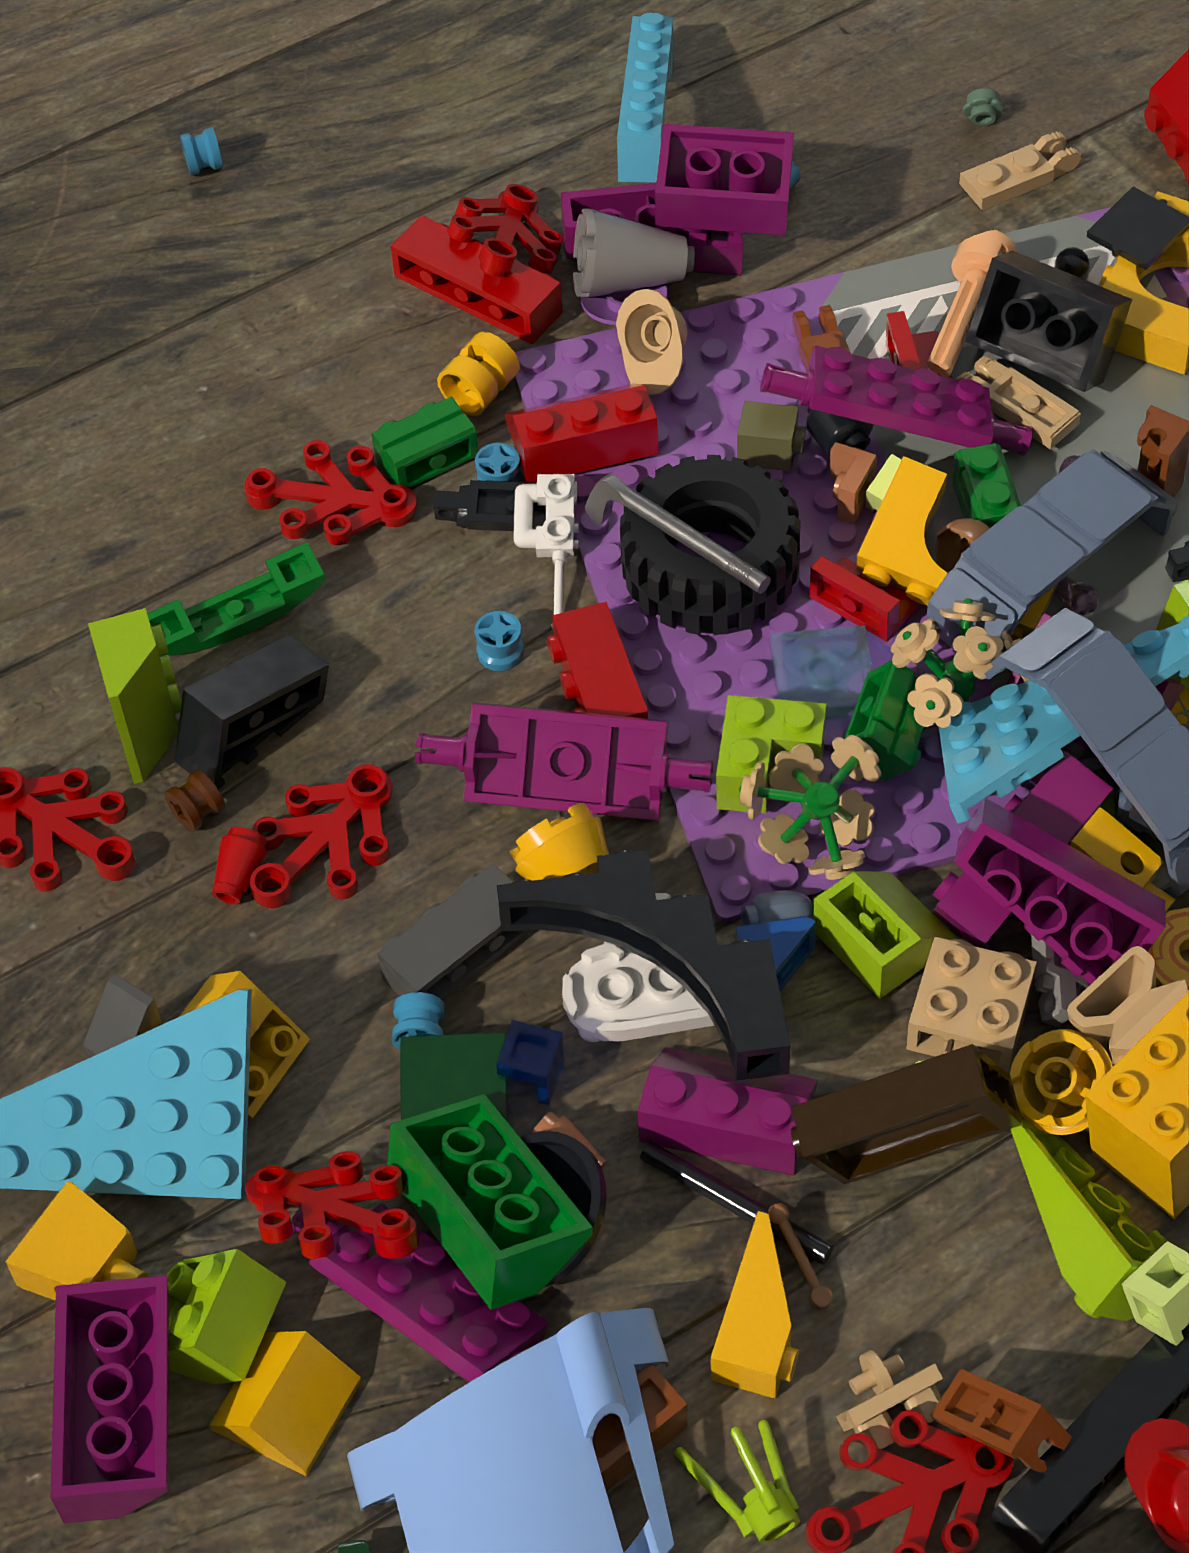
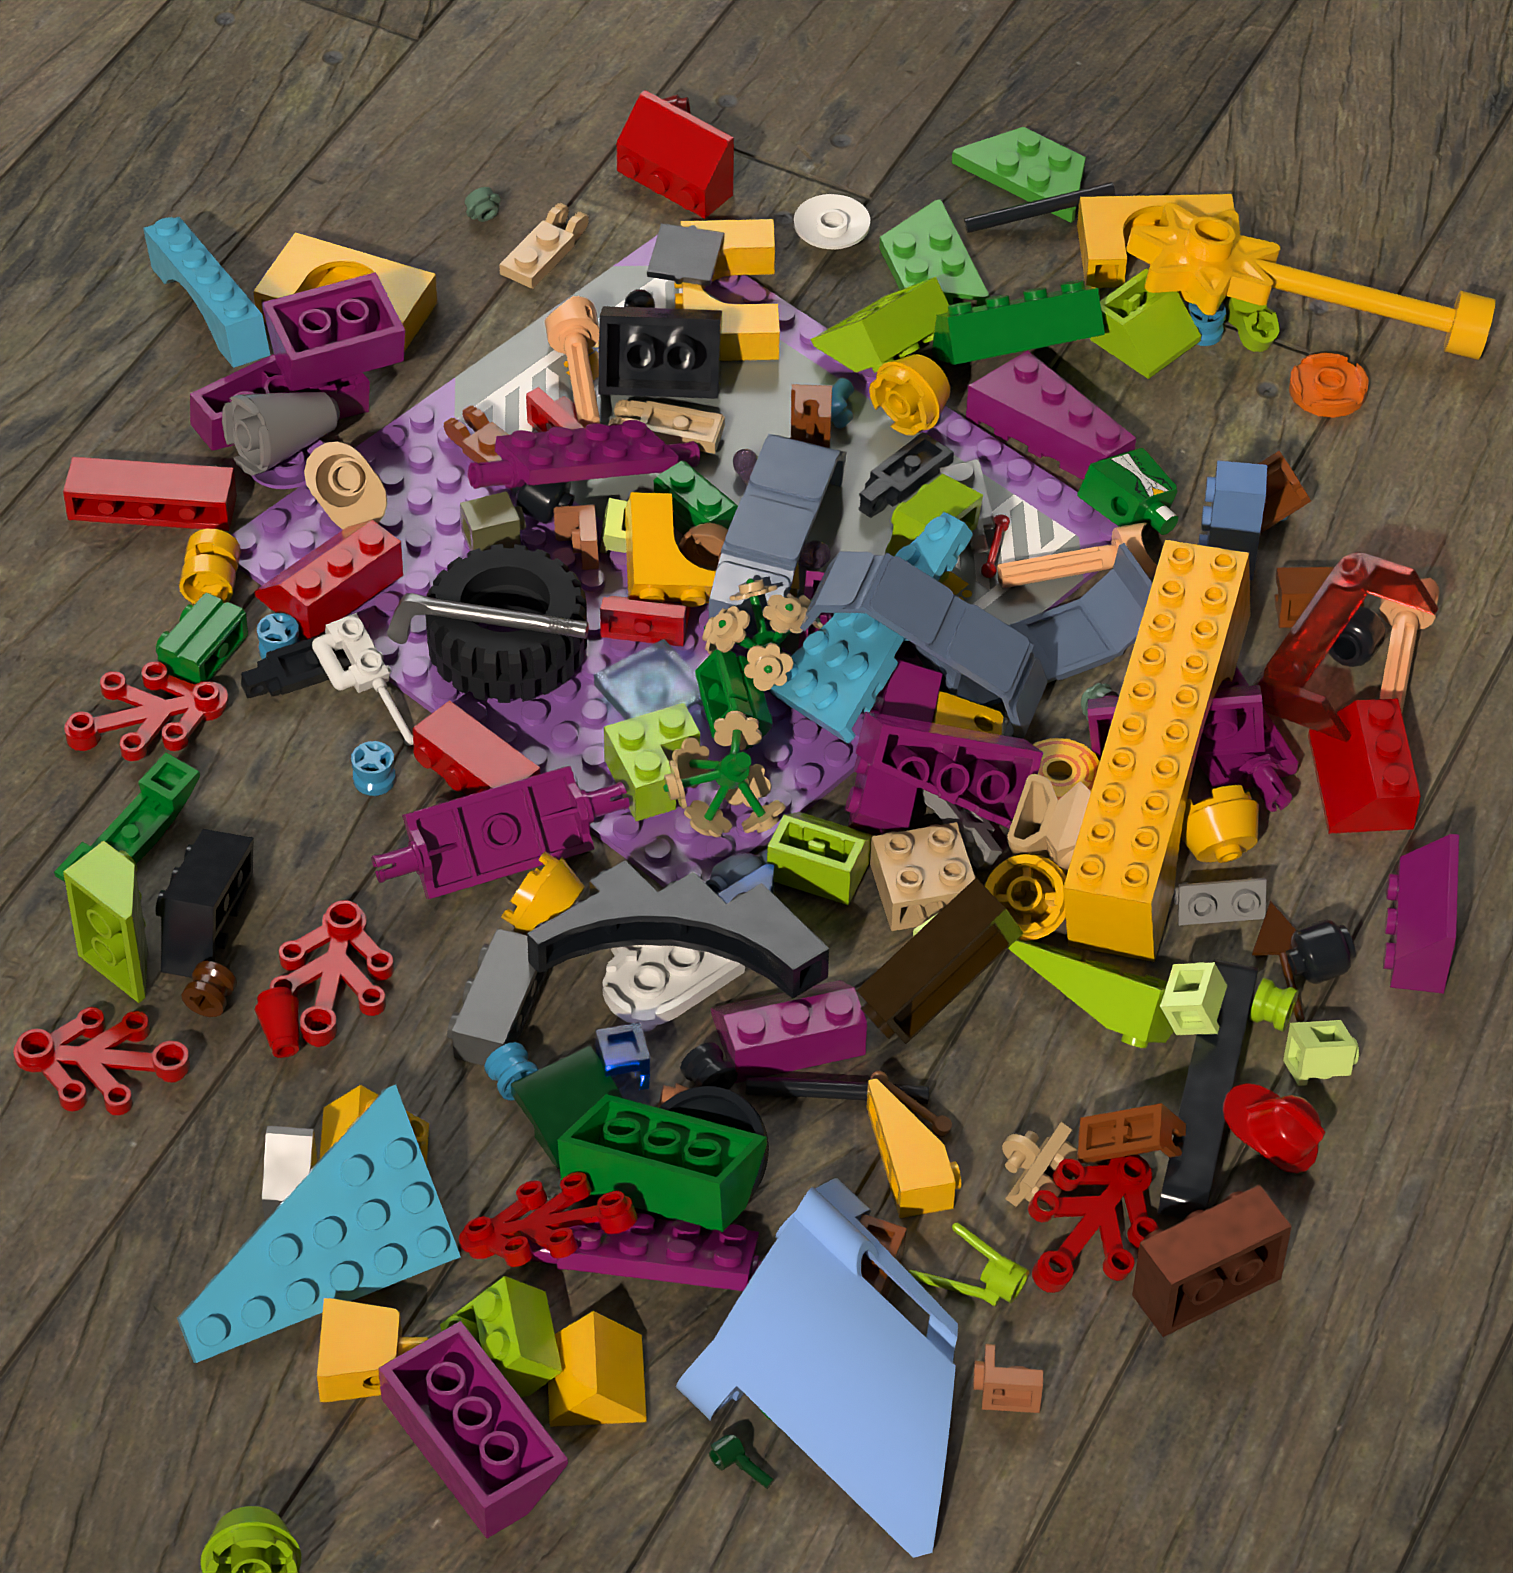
camera: 35 degrees left, 5 degrees down
(498, 254) = (170, 445): red plant -> none
(611, 1117) = (707, 1067): none -> black wheel
(830, 183) = (315, 263): none -> yellow arch

